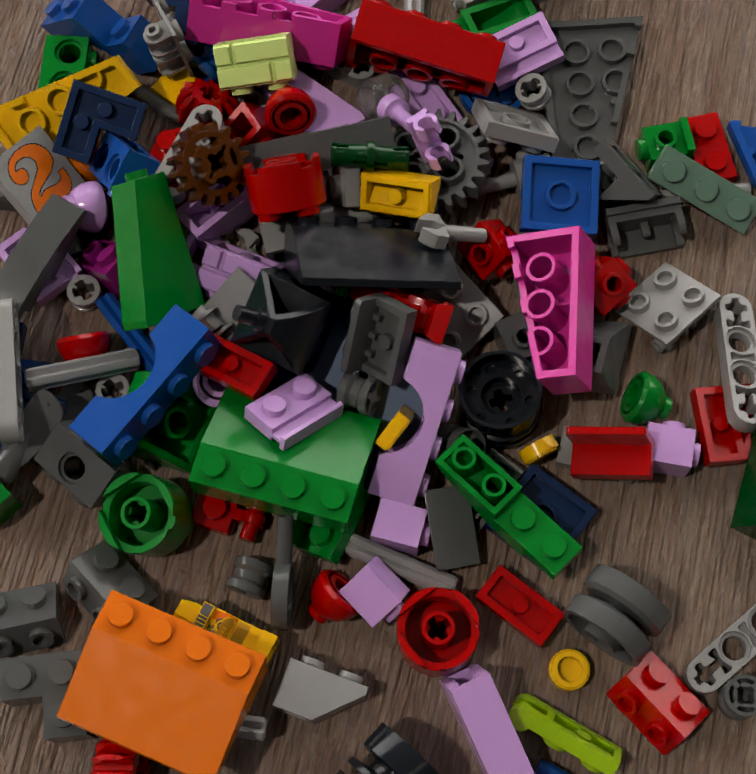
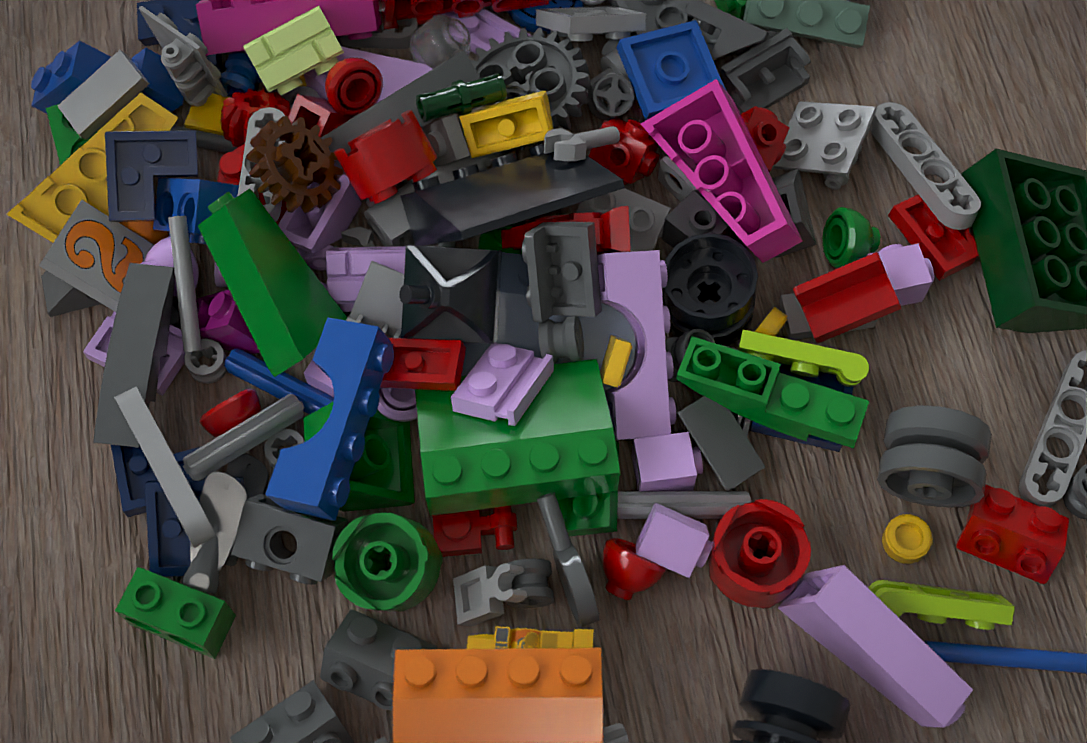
camera: 25 degrees left, 5 degrees down
(88, 227) = (185, 283): none -> light grey bar
(91, 43) = (103, 95): none -> light grey tile
(211, 570) = (482, 593): none -> light grey plate
(317, 694) = (659, 675): light grey slope -> none
(422, 127) = (502, 47): lavender bar -> none
(505, 202) = (617, 93): none -> dark grey wheel
(519, 606) = (827, 494): red plate -> none
(548, 489) = (806, 358): none -> lime plate

